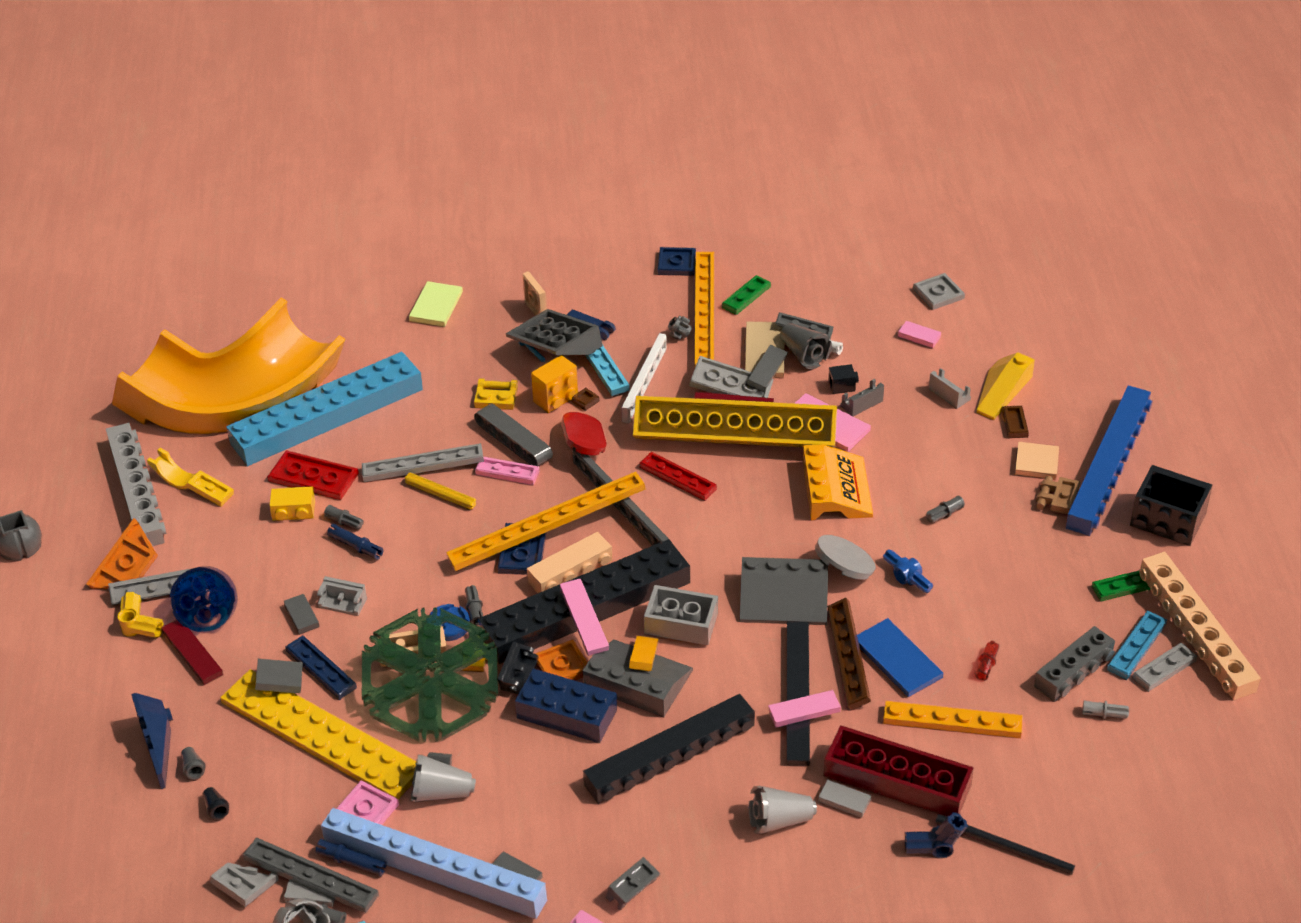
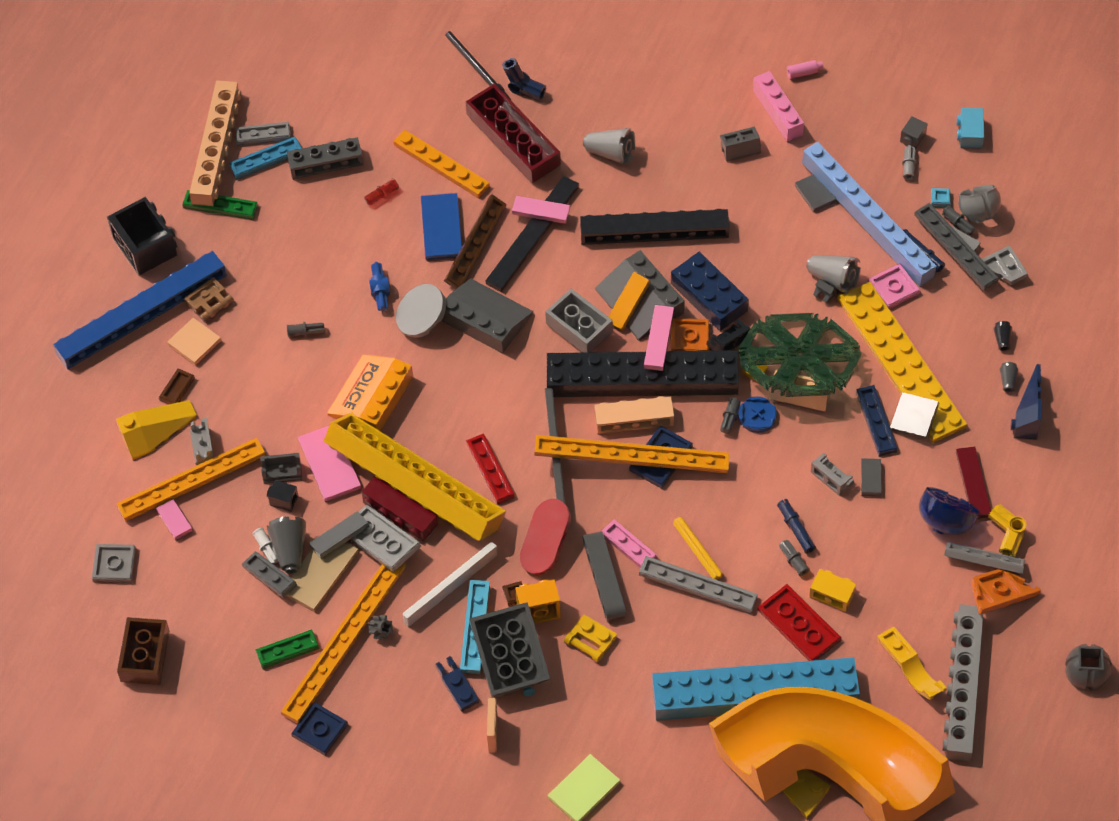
camera: 150 degrees left, 15 degrees up
(844, 798) = (560, 141): light grey tile -> none
(854, 241) = (143, 651): none -> reddish brown brick
(930, 362) = (190, 479): none -> light orange plate
(1105, 710) = (334, 120): light grey axle -> none

